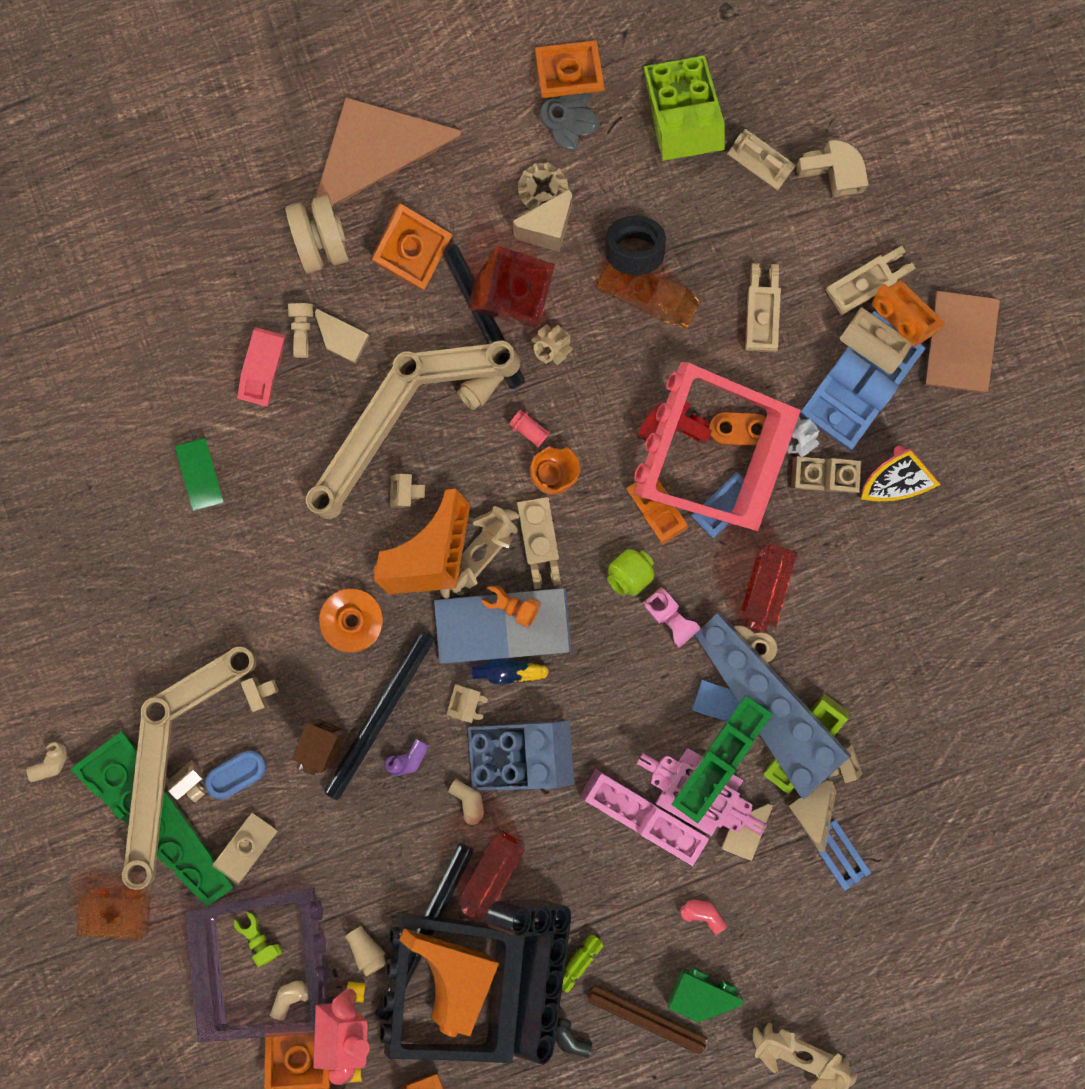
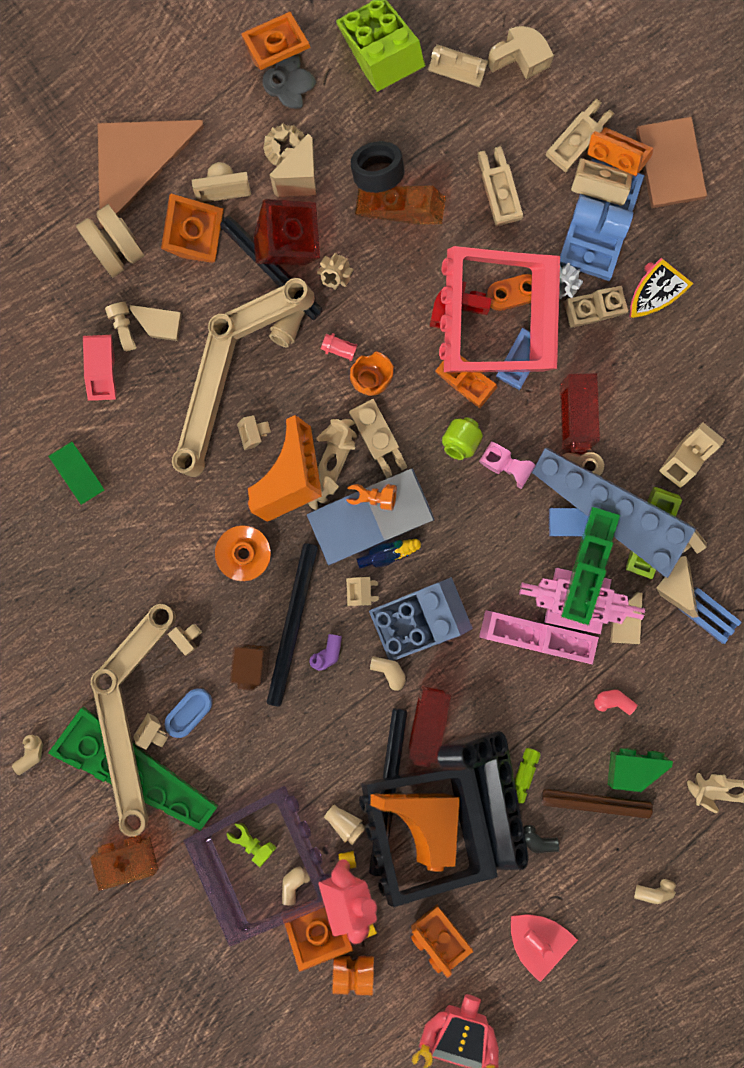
camera: 20 degrees left, 0 degrees up
(245, 848) = (216, 771): tan plate -> none
(458, 208) = (221, 184): none -> tan tile
(874, 672) = (691, 454): none -> tan brick

